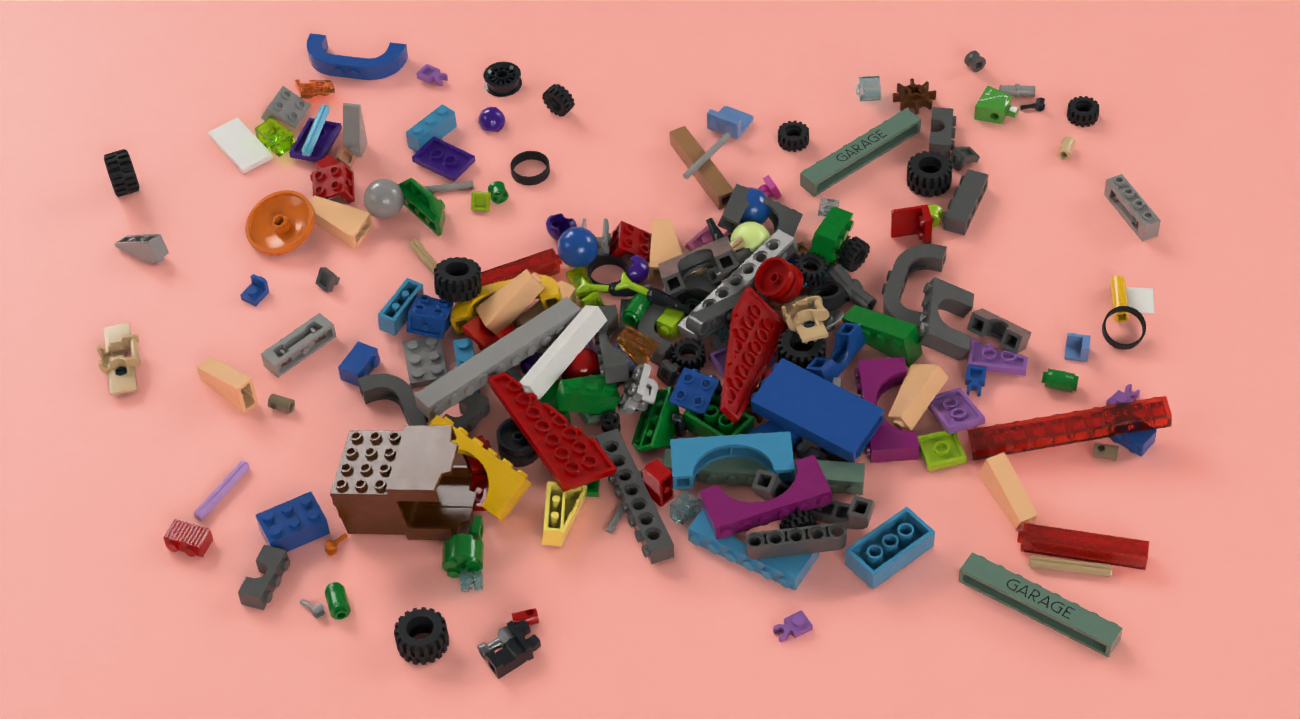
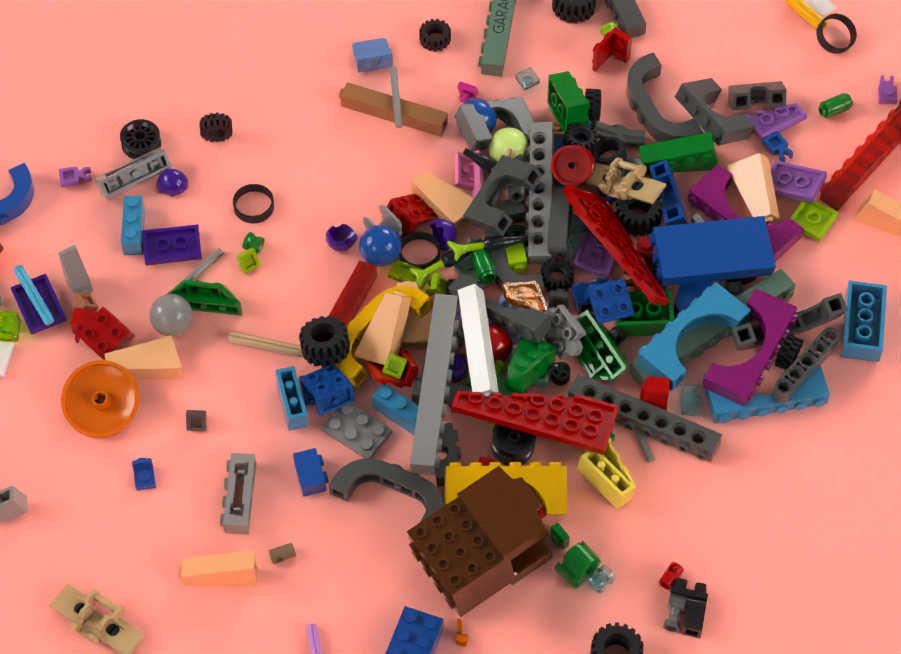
camera: 45 degrees left, 10 degrees up
(469, 95) = (133, 172): none -> light grey brick
(488, 329) = (394, 365): none -> lime tile
(794, 625) = (857, 430): medium lavender plate -> none
(1077, 347) = (820, 71): medium blue panel -> none

